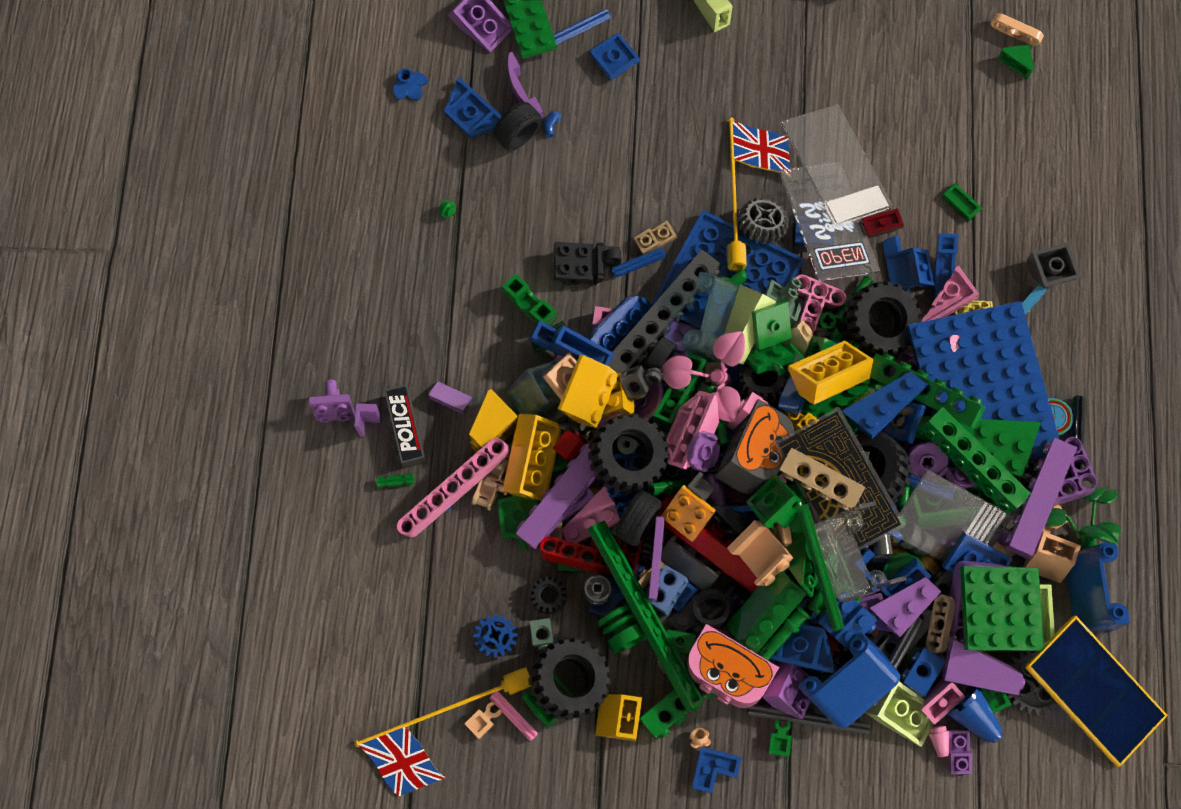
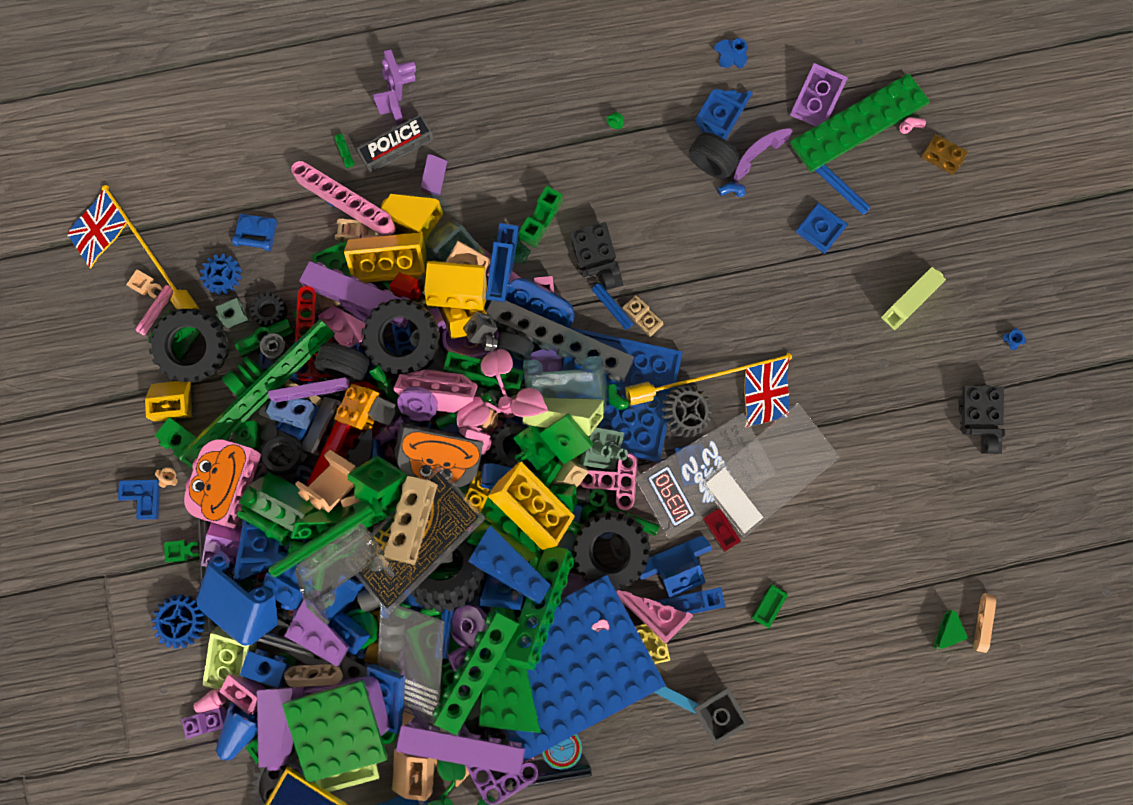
camera: 75 degrees right, 5 degrees up
(451, 590) = (255, 226): none -> blue plate
(580, 617) = (252, 342): none -> green piece
(849, 763) = (179, 613): none -> blue gear

